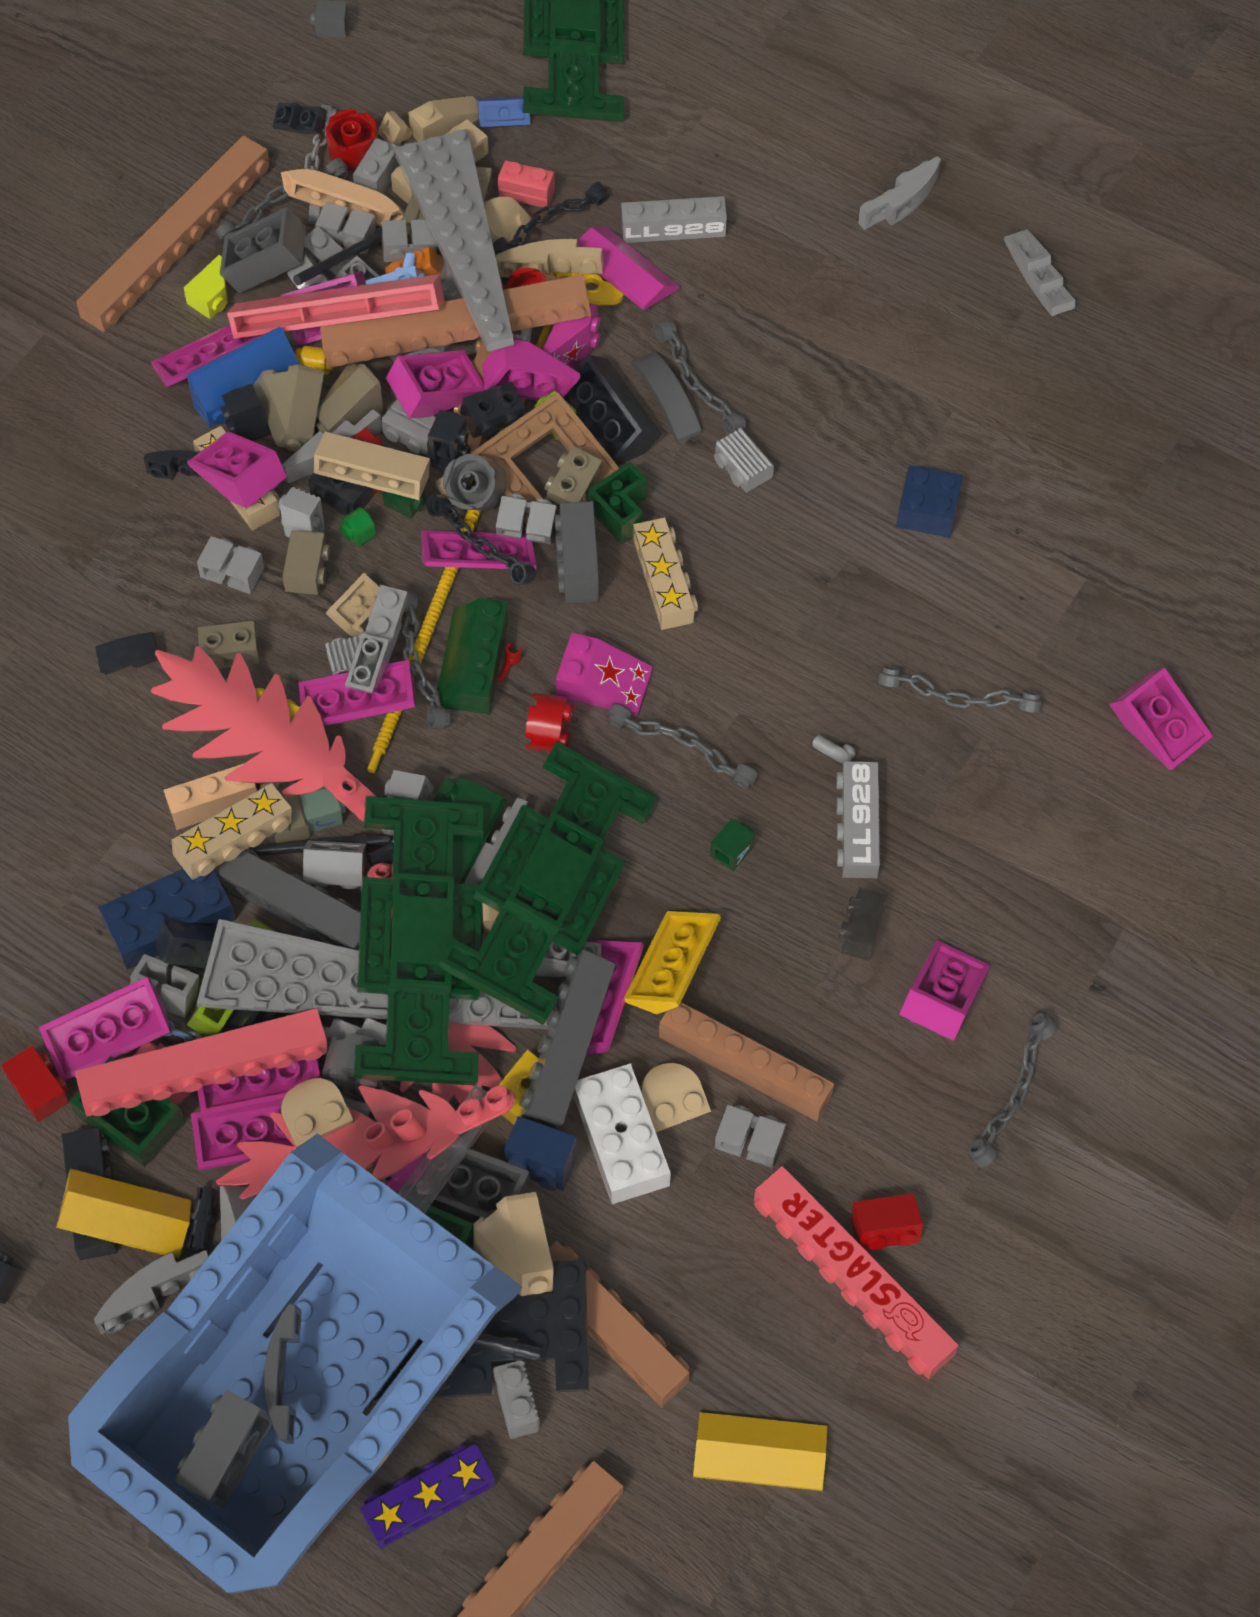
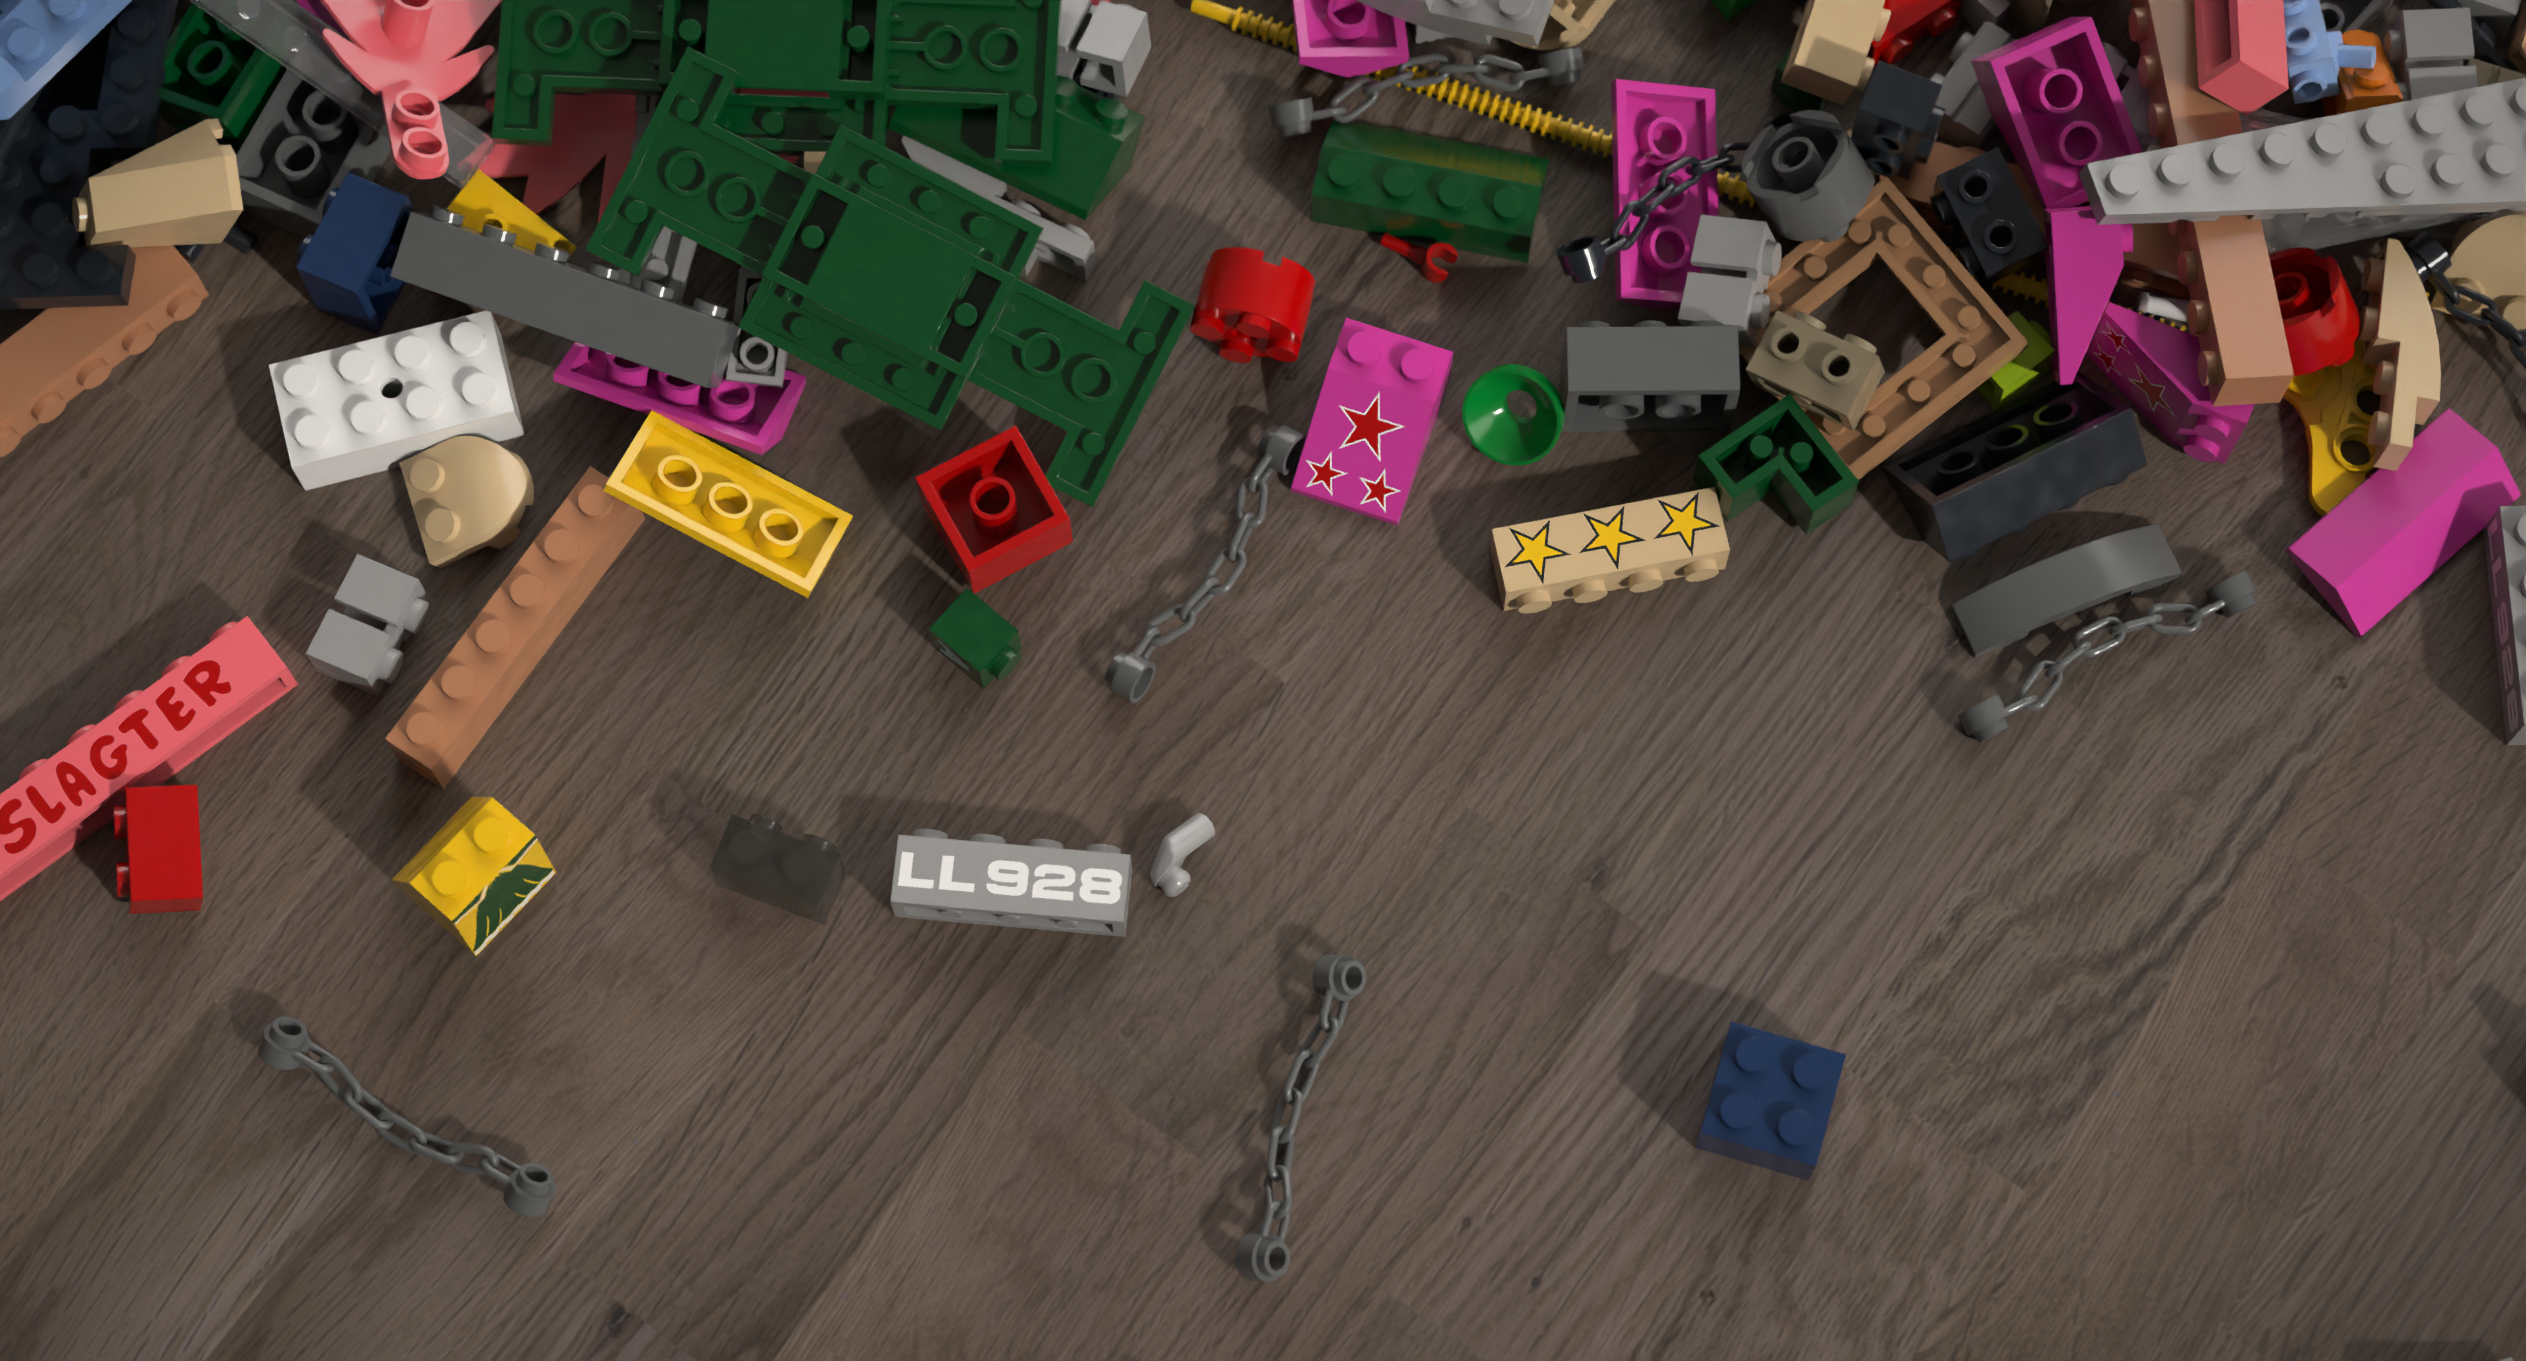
camera: 95 degrees right, 10 degrees up
(605, 611) = (1501, 432): none -> green piece
(665, 836) = (994, 509): none -> red brick
(743, 460) = (1886, 726): light grey brick -> none
(882, 1062) = (476, 872): none -> yellow slope
(944, 990) = (630, 1013): dark pink slope -> none

